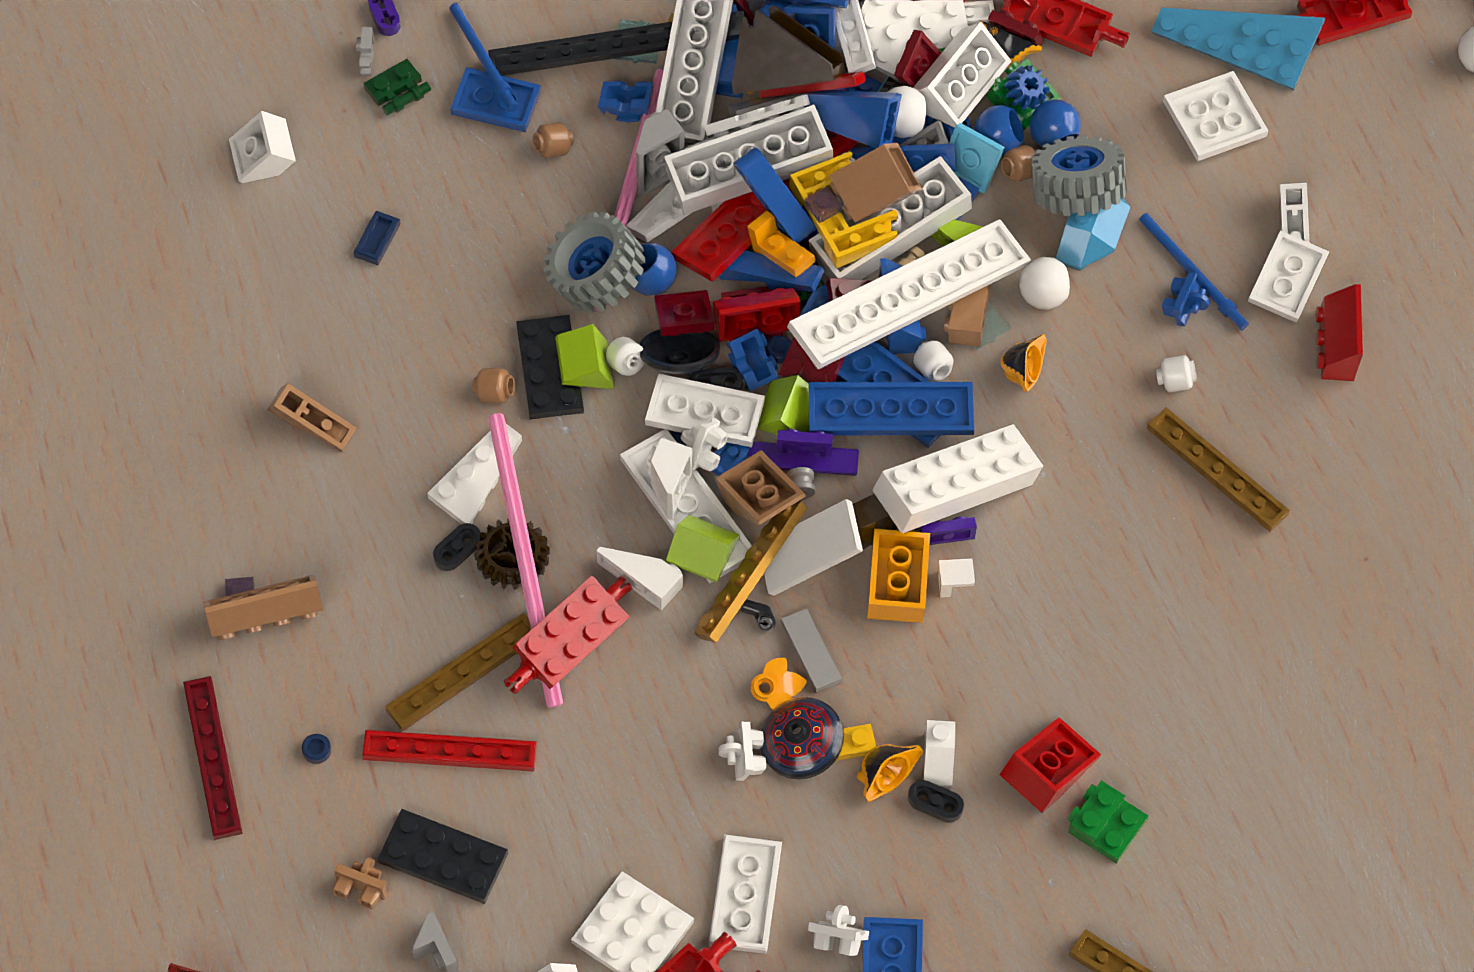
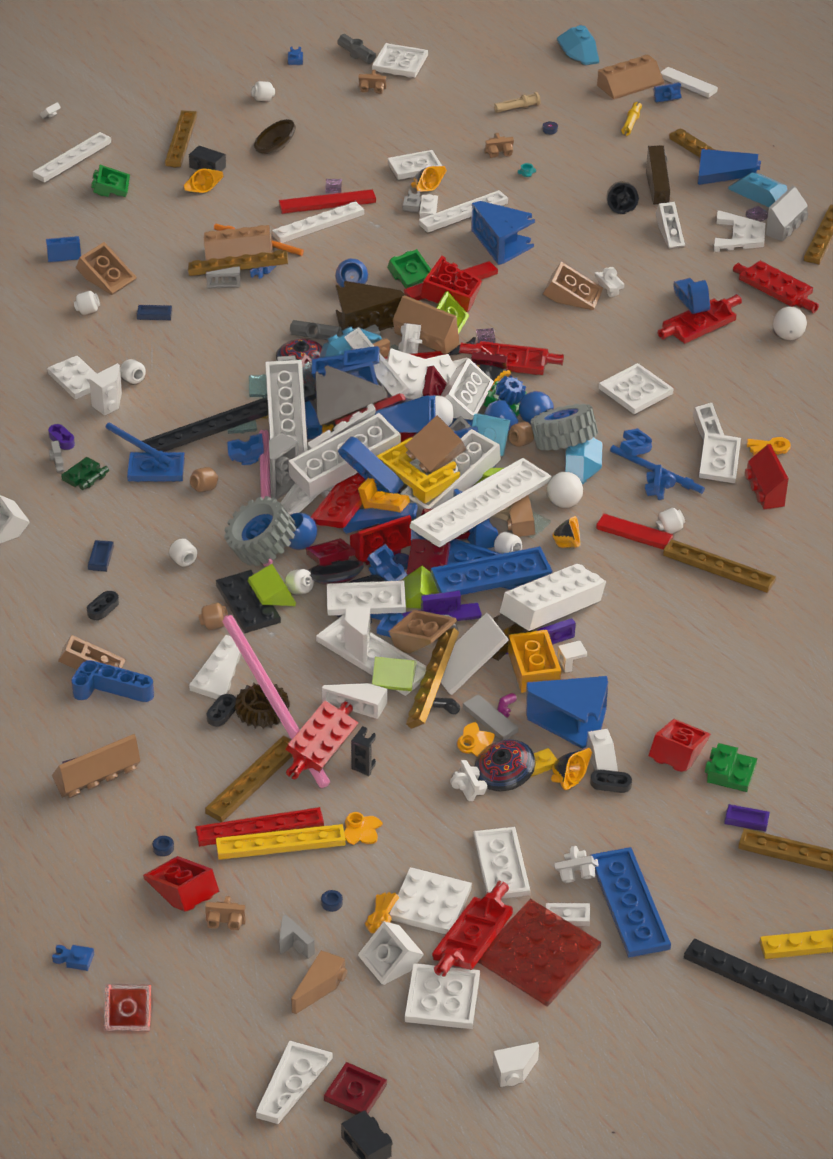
camera: 15 degrees left, 20 degrees down
(157, 897) = (76, 958): none -> blue plate
(212, 758) = (89, 867): dark red tile -> none
(320, 817) = (183, 883): none -> red slope
(328, 467) = (111, 679): none -> blue beam
(351, 327) = (102, 605): none -> black plate
(443, 856) = (278, 888): black plate -> none
(467, 785) = (280, 841): none -> yellow plate
(485, 264) = (183, 552): none -> white head
(505, 895) = (331, 900): none -> dark blue tile
(556, 944) = (382, 907): none -> light orange piece
(580, 794) = (361, 828): none -> light orange plate
(613, 670) = (362, 752): none -> black hinge
(701, 440) = (377, 604): white hips -> none
(823, 204) = (405, 465): plate -> none
(836, 632) = (504, 702): none -> magenta arm
(920, 671) = (568, 706): none -> blue ladder
(1099, 908) = (747, 817): none -> dark purple tile
(1121, 376) = (634, 531): none -> red tile
(1182, 223) = (636, 442): none -> blue plate
(1258, 43) = (646, 346): dark azure wing -> none
(1383, 269) = (779, 444): none -> light orange piece

